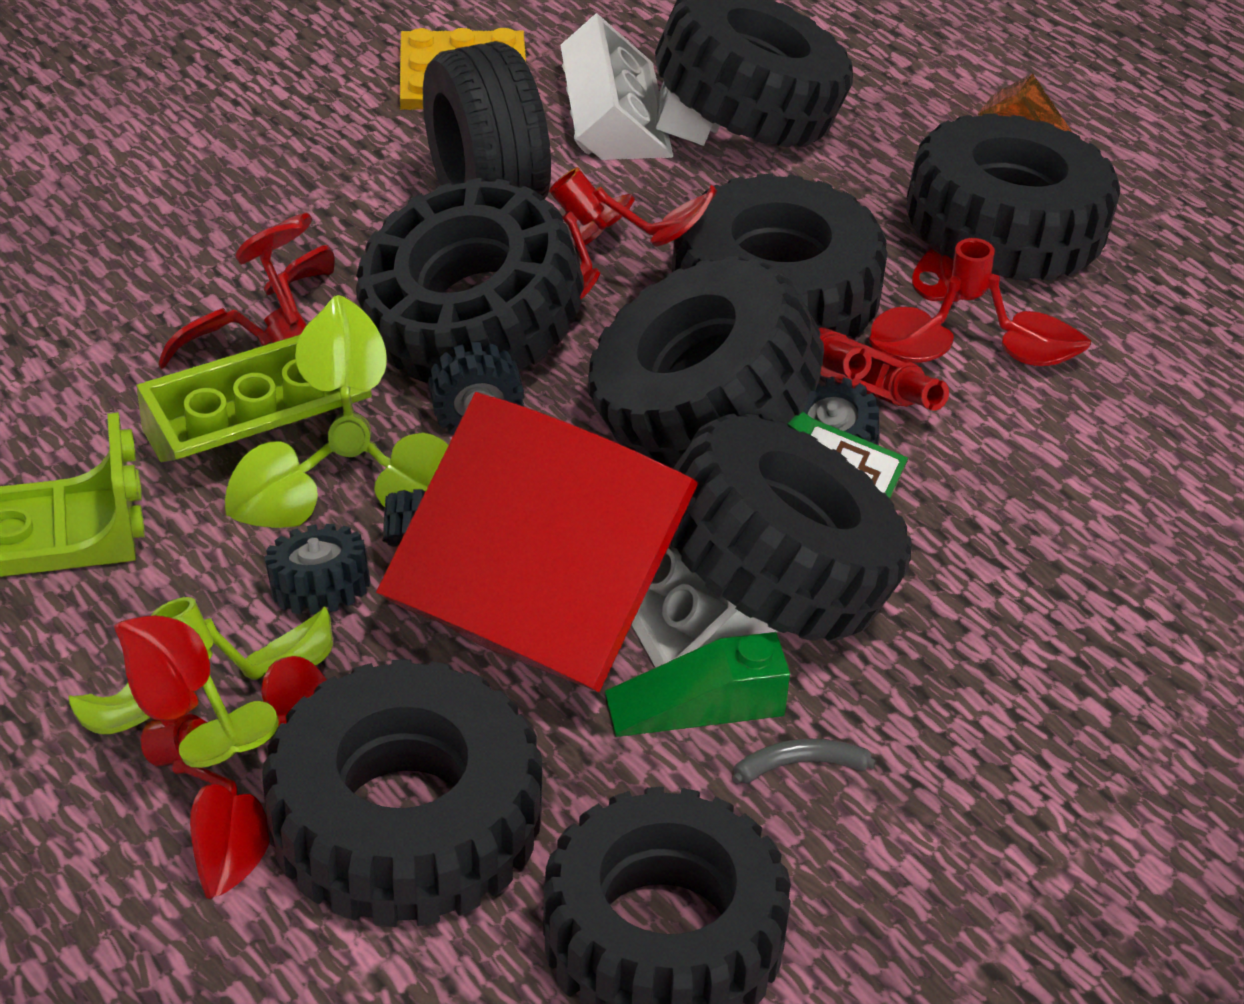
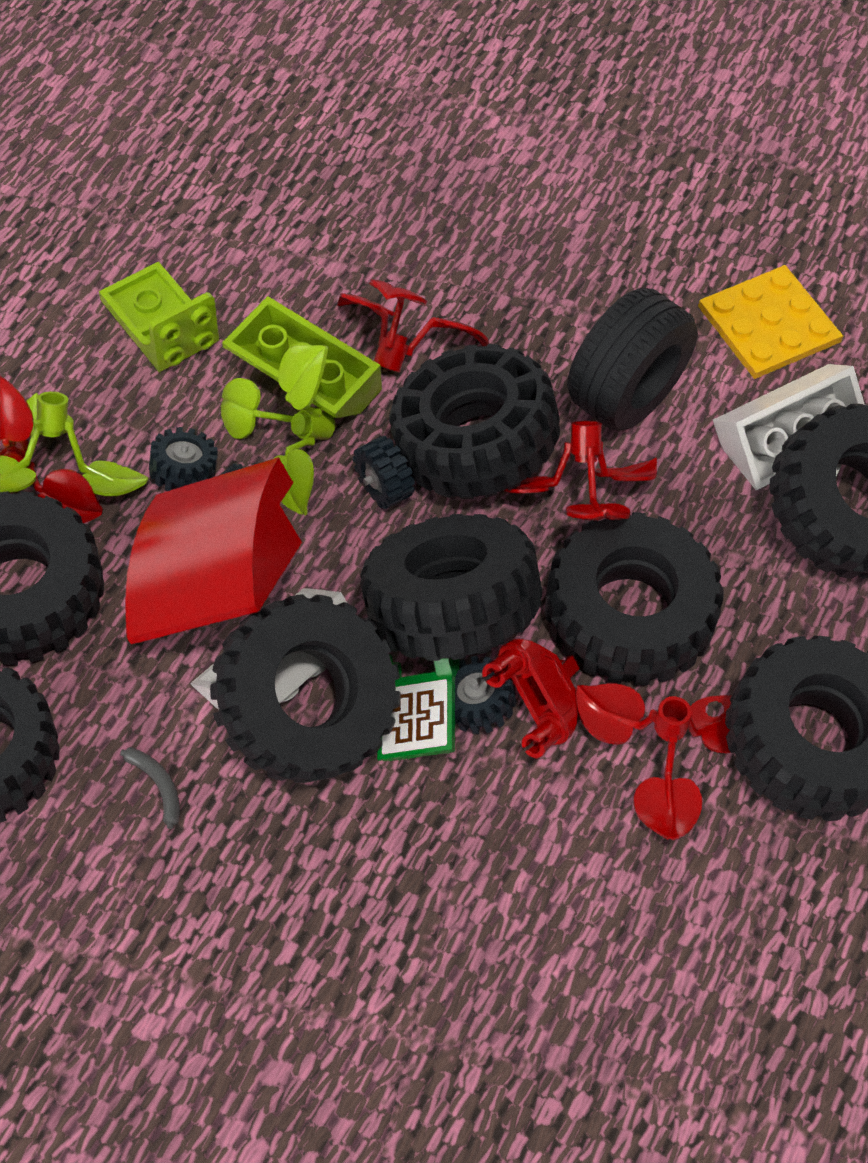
camera: 65 degrees right, 15 degrees up
(706, 687) = (181, 707): green slope -> none

